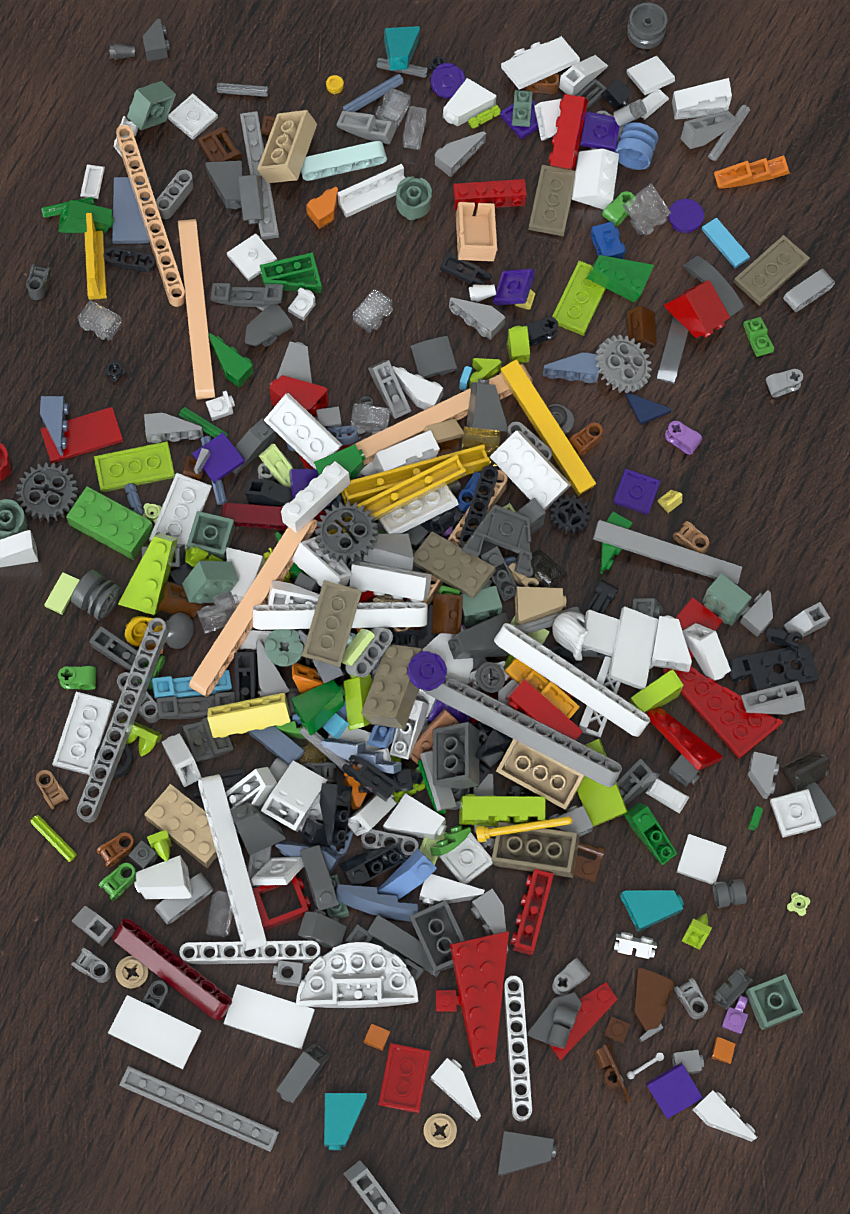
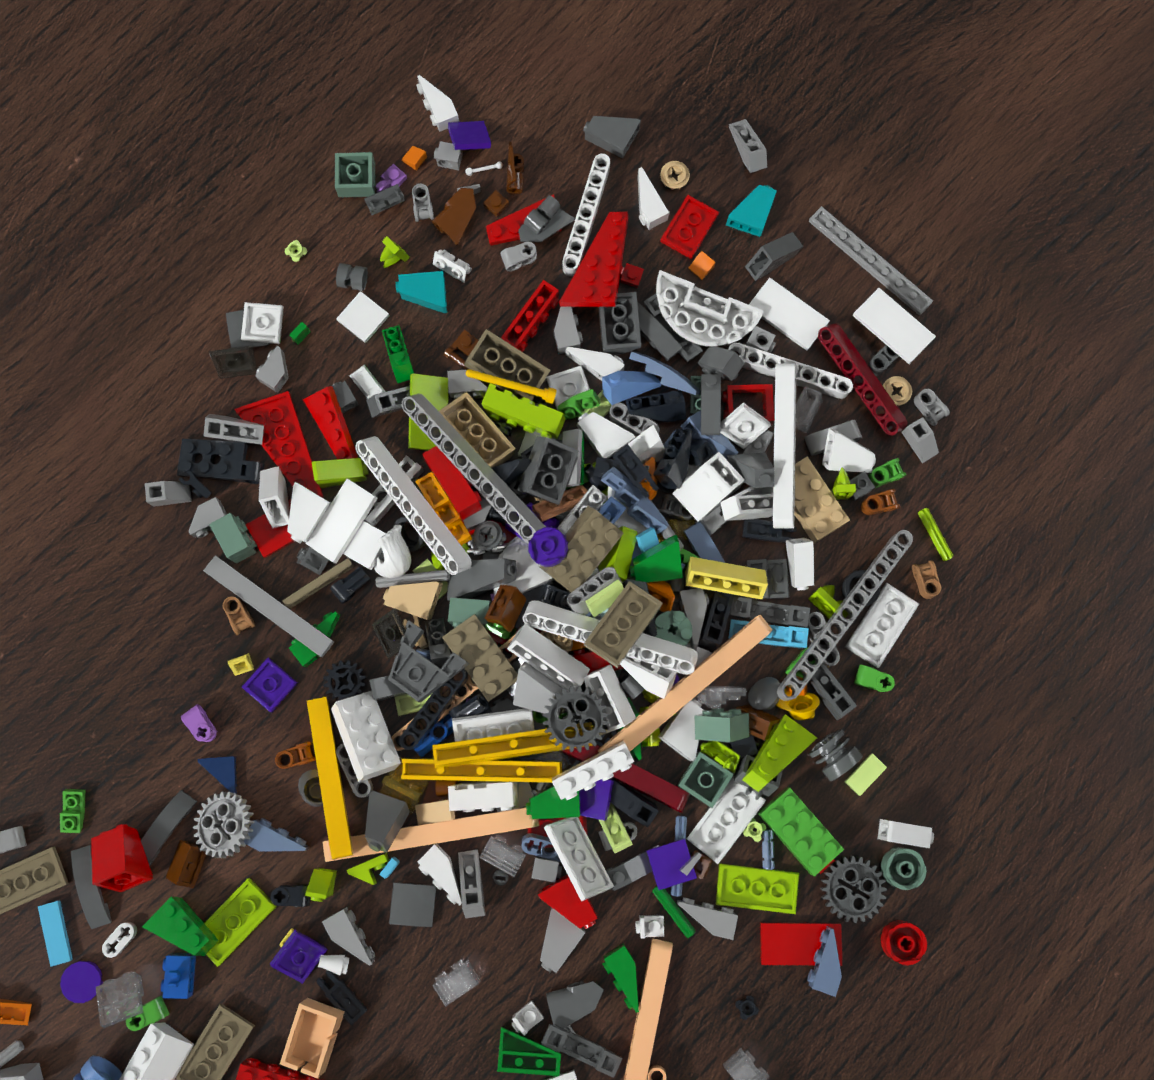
camera: 160 degrees left, 10 degrees up
(632, 588) = (318, 583): none -> dark tan tile
(667, 254) = (116, 936): none -> white beam
(784, 382) = (73, 748): light grey piece -> none

